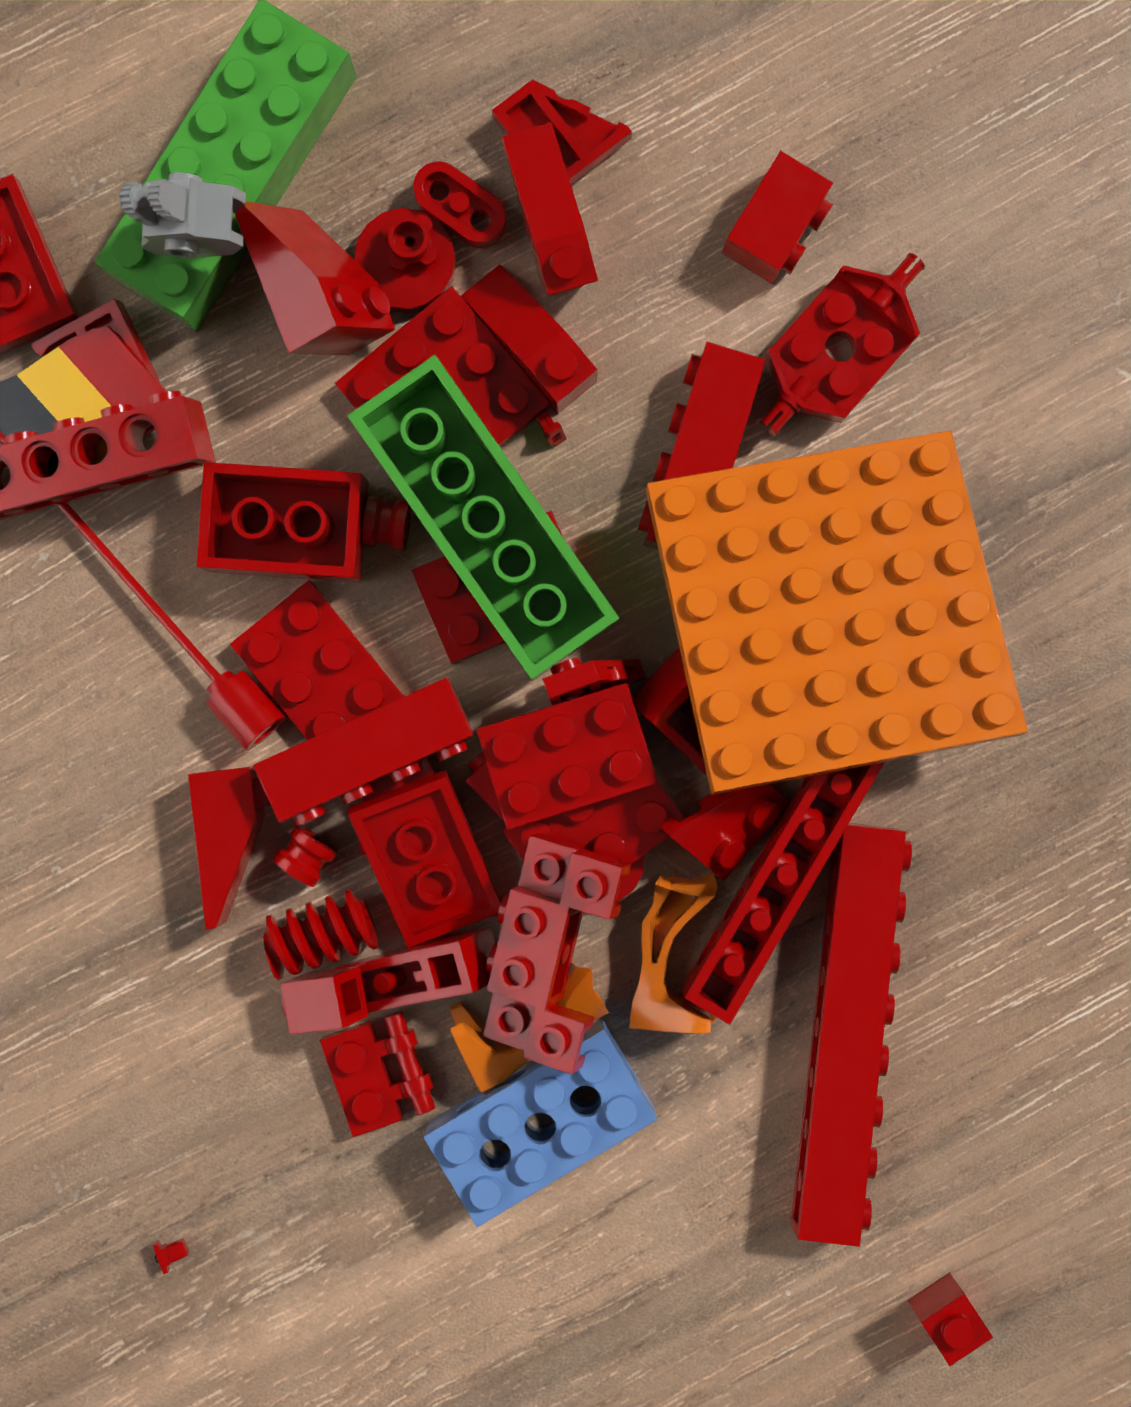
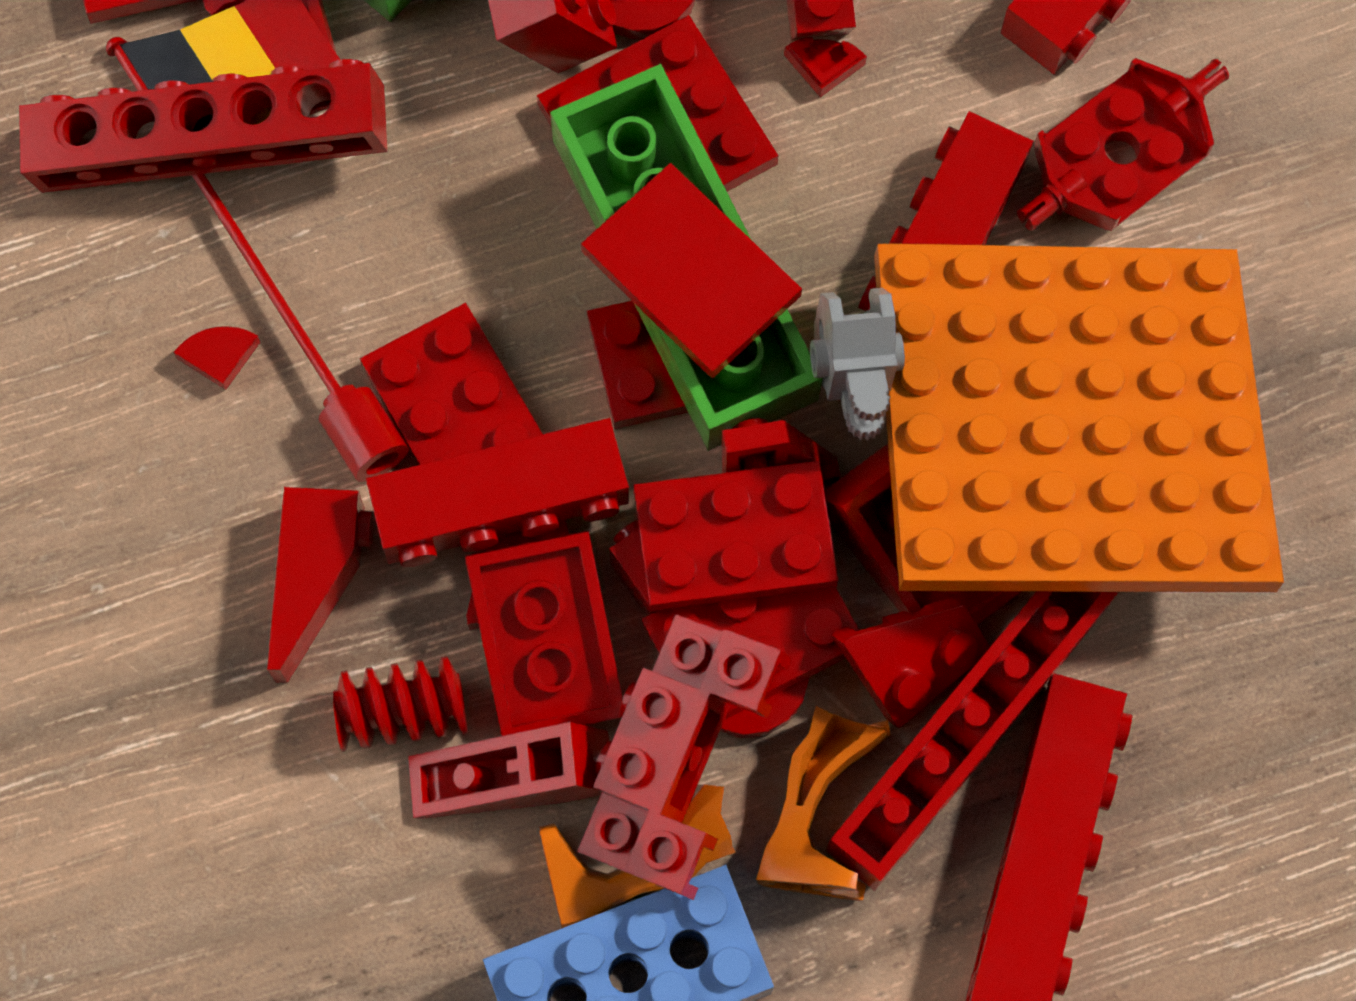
camera: 10 degrees right, 15 degrees down
(111, 657) = (218, 352): none -> red tile
(282, 522) = (450, 230): red brick -> none
(305, 855) = (401, 611): red wheel -> none
(324, 1000) = (390, 782): brick -> none
(363, 1078) = (417, 893): red plate -> none
(386, 523) = (563, 255): red wheel -> none
(492, 543) = (691, 270): none -> red tile
(532, 338) = (774, 86): red slope -> none
(552, 431) = (776, 186): red piece -> none
(576, 308) = (824, 62): none -> red tile
(648, 602) = (858, 358): none -> light grey hinge

